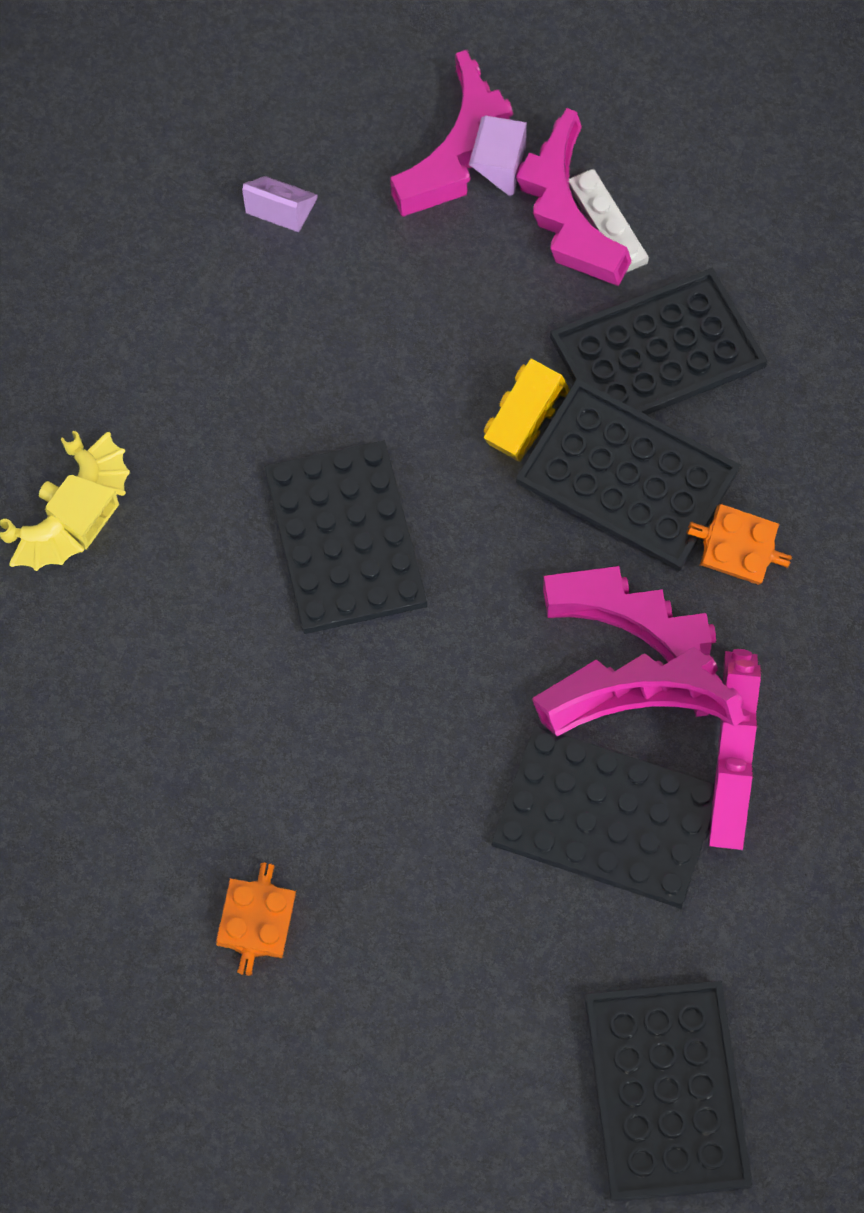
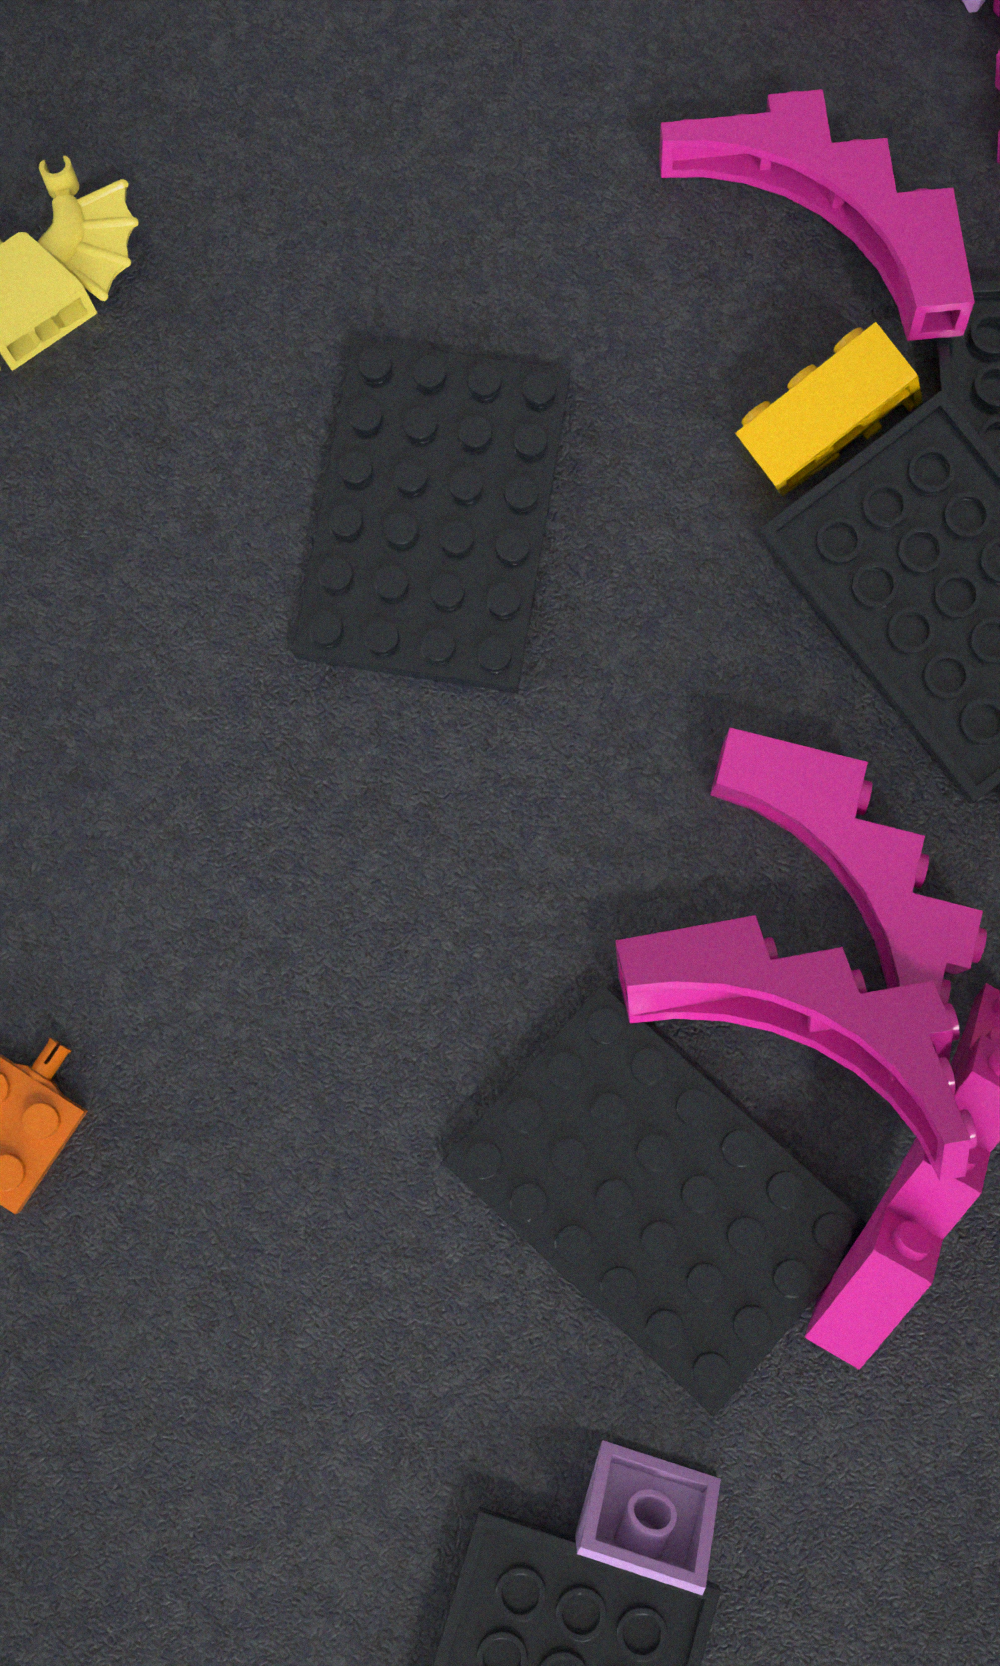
camera: 25 degrees right, 15 degrees up
(488, 299) = (851, 184): none -> dark pink arch
(671, 962) = (649, 1517): none -> lavender slope

